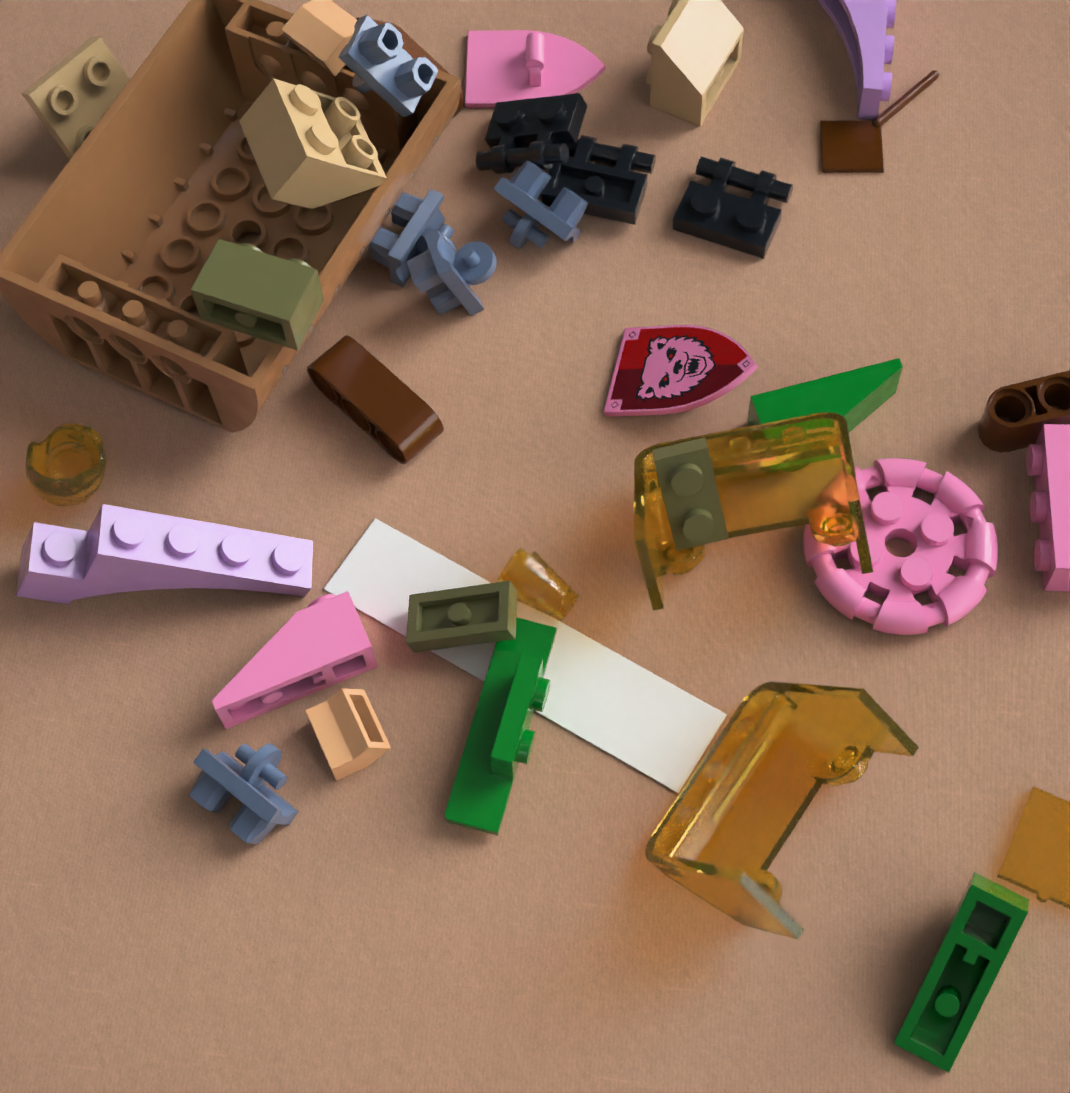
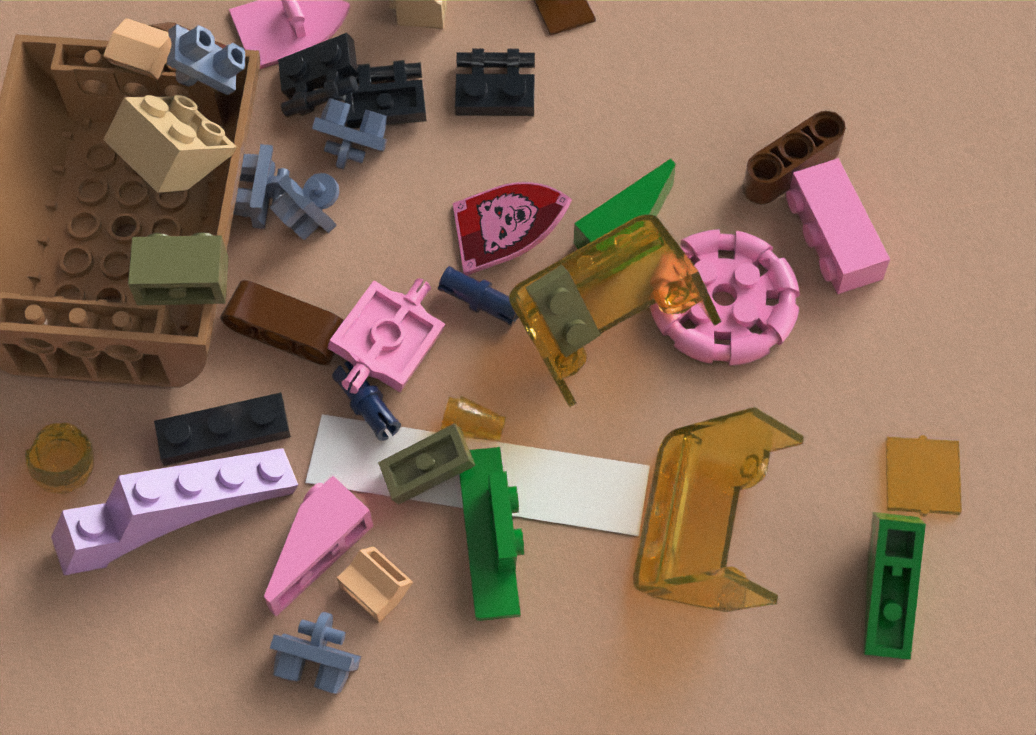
camera: 25 degrees left, 0 degrees up
(258, 495) = (222, 429): none -> black plate
(428, 520) = (369, 404): none -> dark blue pin
(480, 453) = (386, 336): none -> bright pink plate
(607, 442) = (478, 295): none -> dark blue pin

